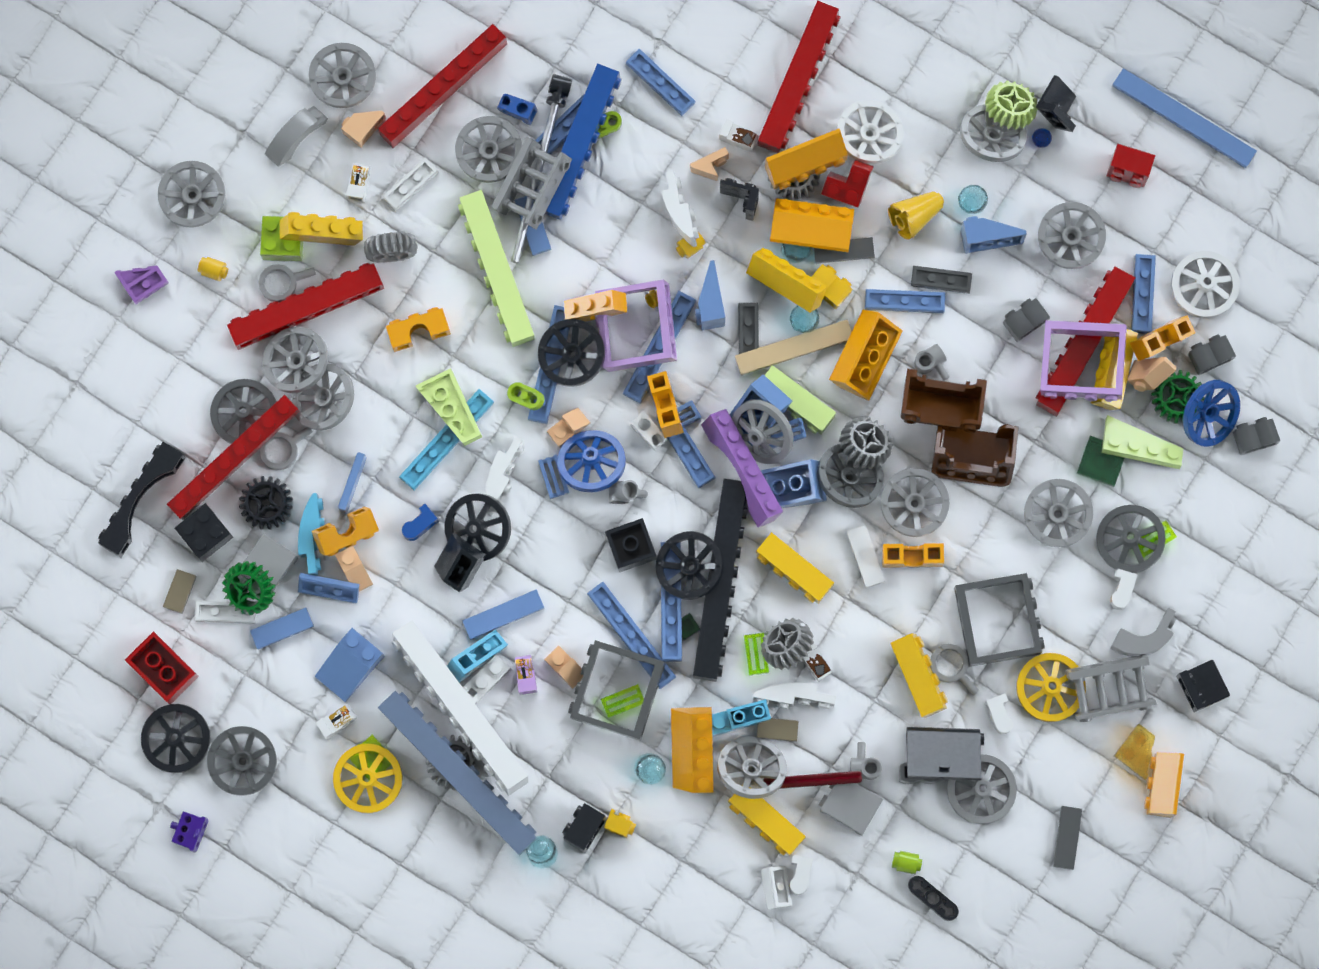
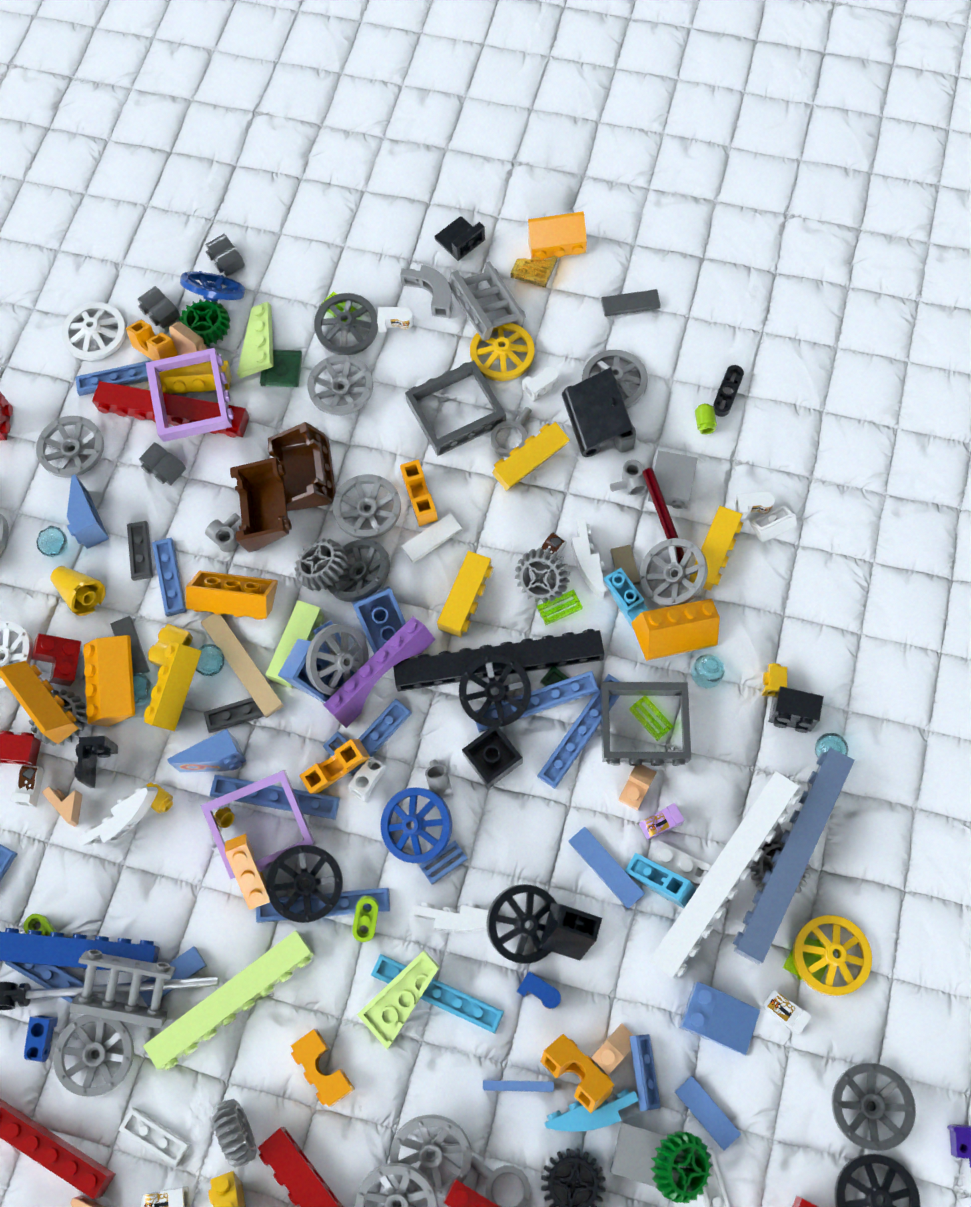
camera: 105 degrees left, 10 degrees down
(571, 424) = (386, 864): light nougat slope -> none

